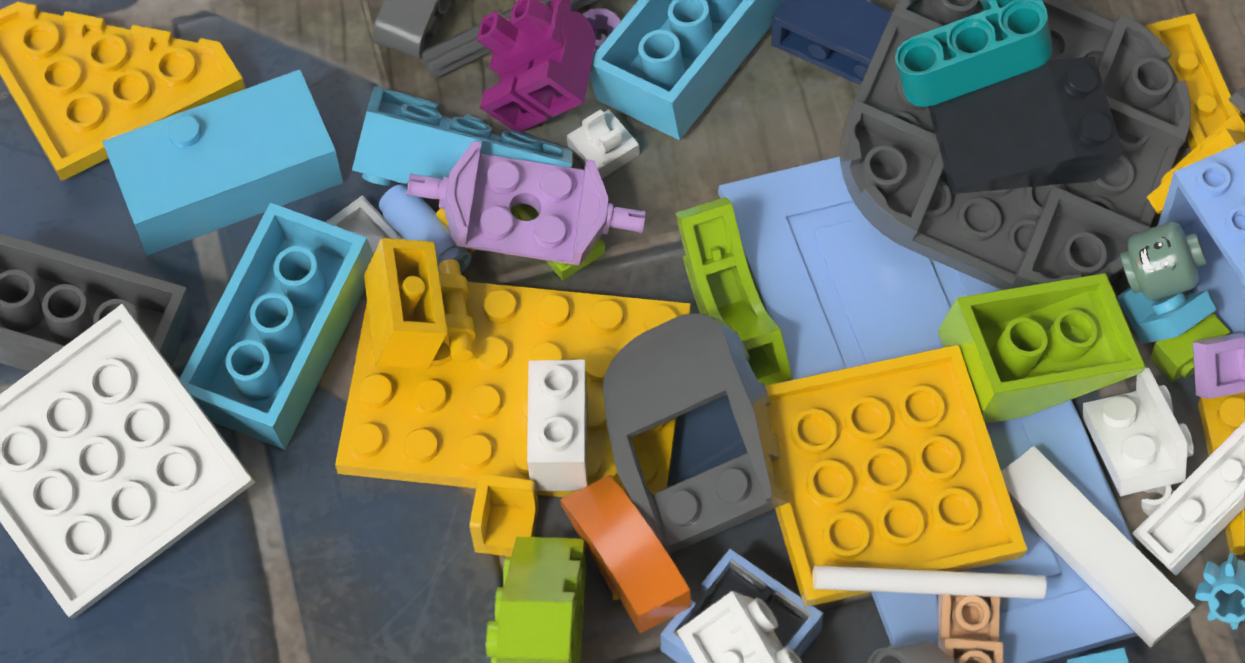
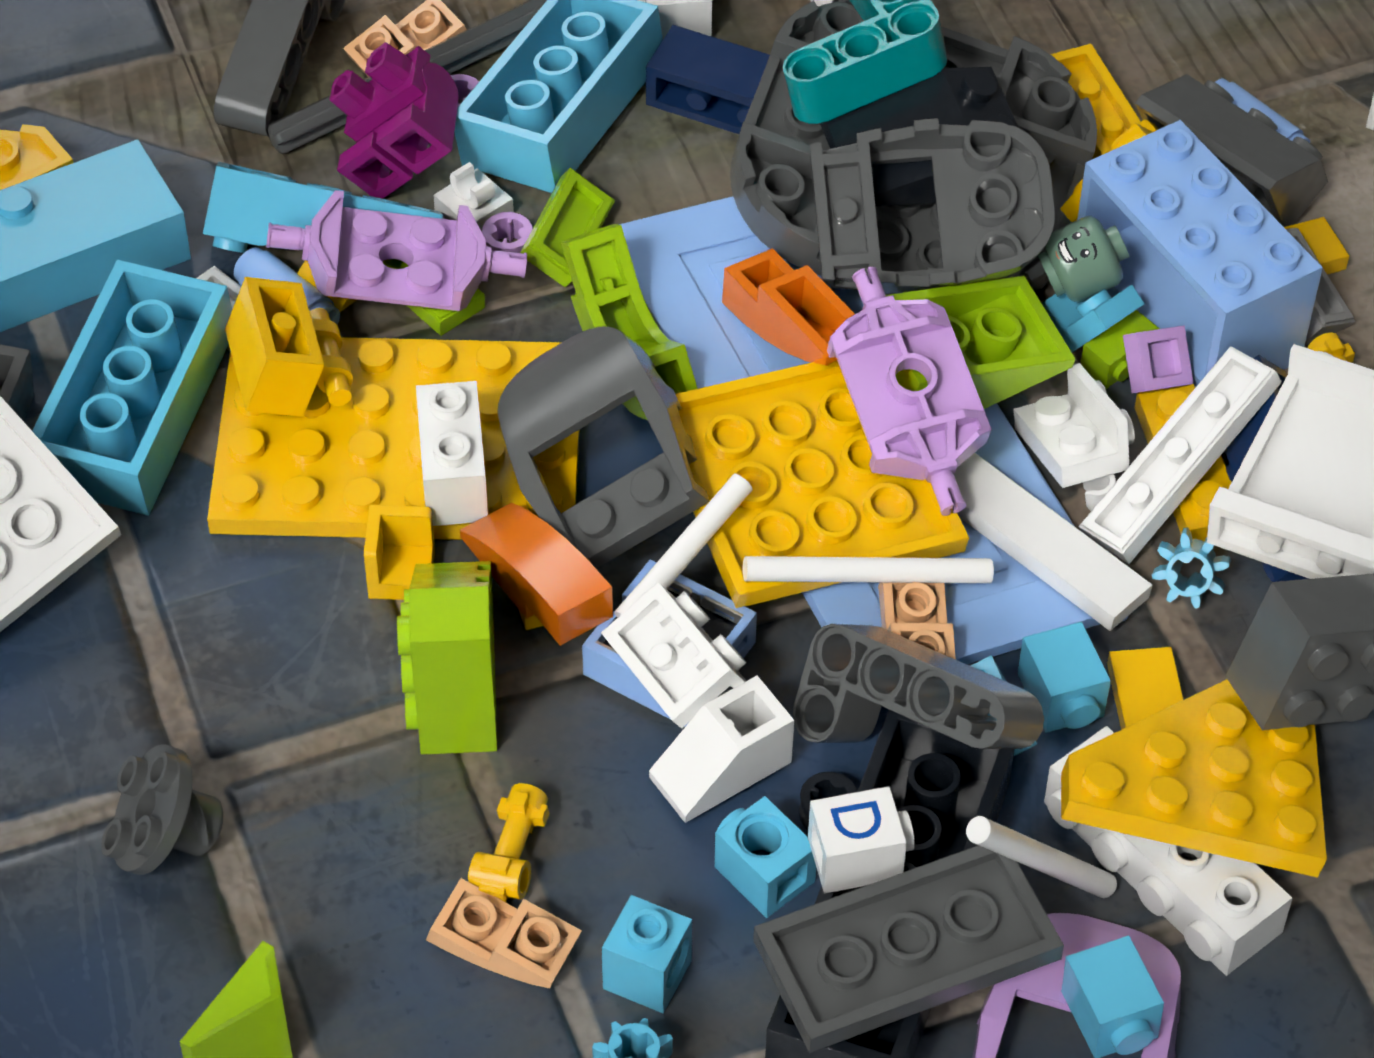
camera: 10 degrees left, 10 degrees down
(634, 171) = (505, 226): none -> lavender bush
(686, 175) = (570, 211): none -> lime tile
(764, 546) = (692, 539): none -> white bar
(887, 297) = (785, 305): none -> orange slope
(978, 444) = (907, 430): none -> lavender plate
(1078, 205) = (988, 198): none -> dark grey slope

